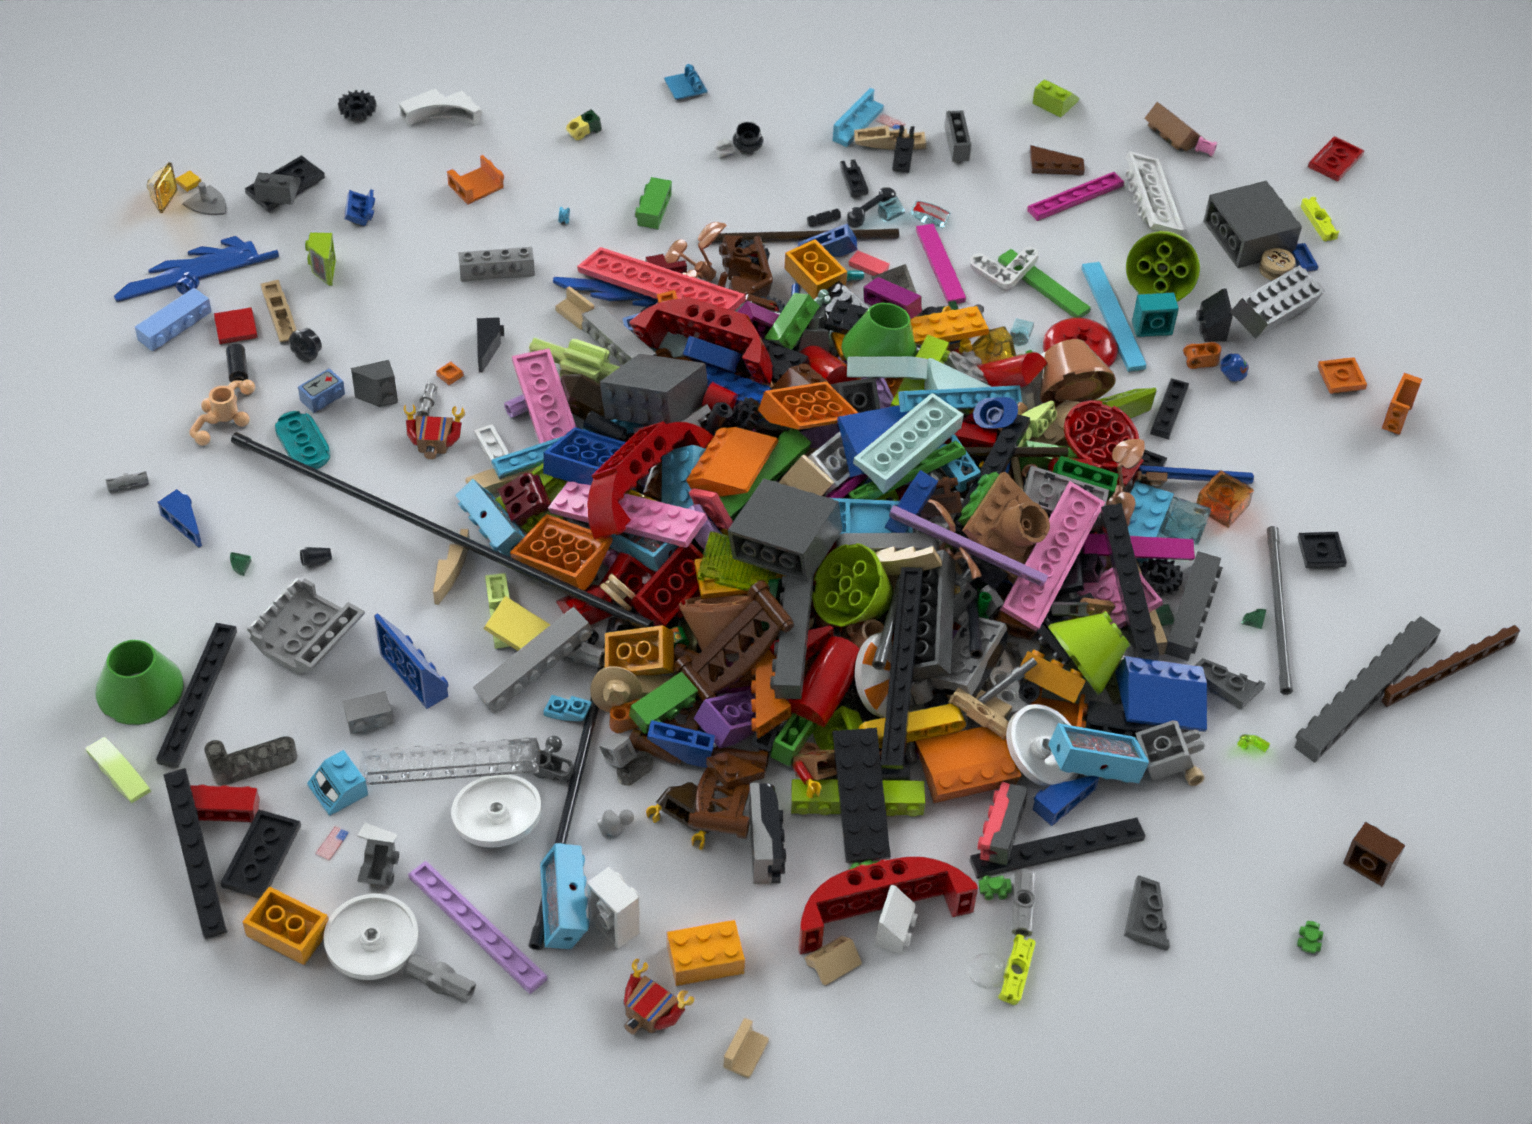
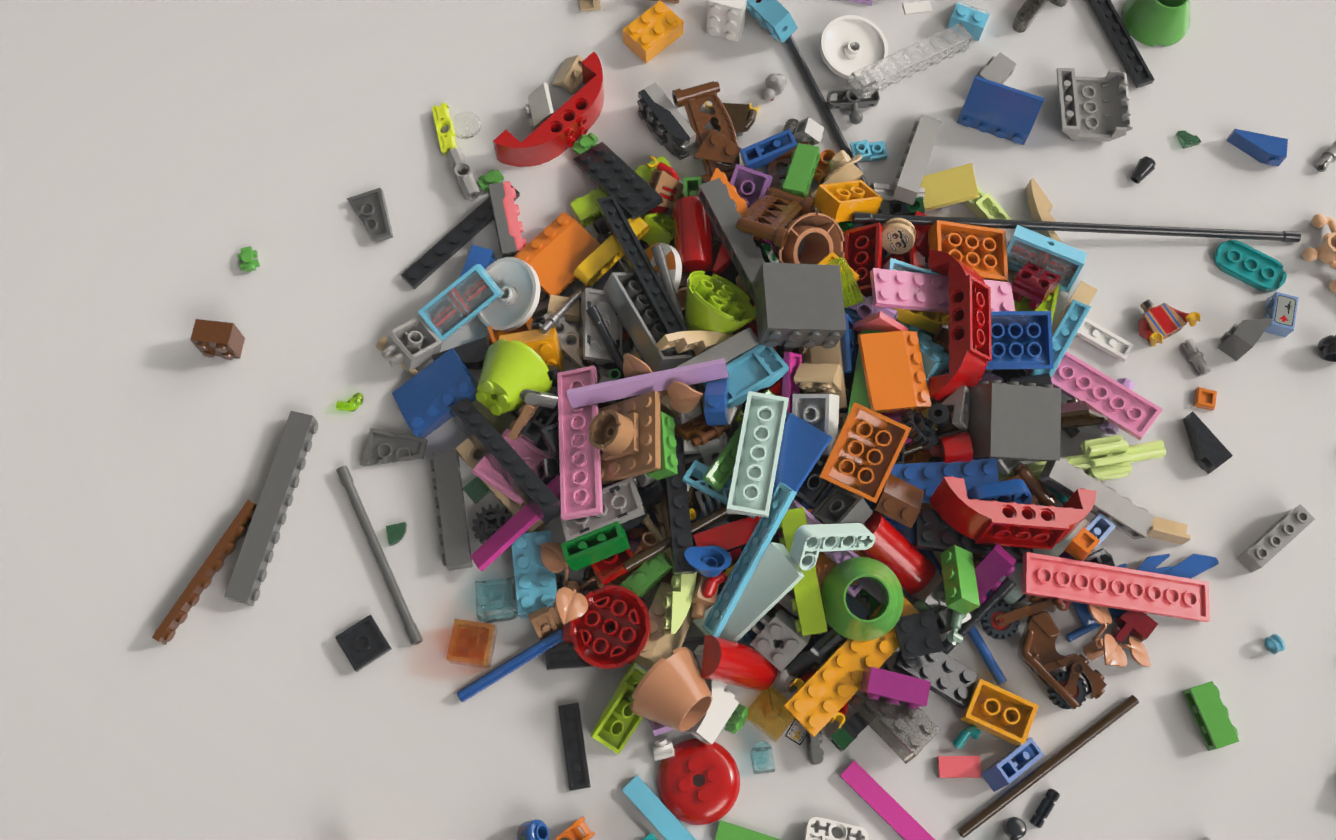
camera: 150 degrees right, 20 degrees up
(980, 712) = (577, 284): tan piece -> none

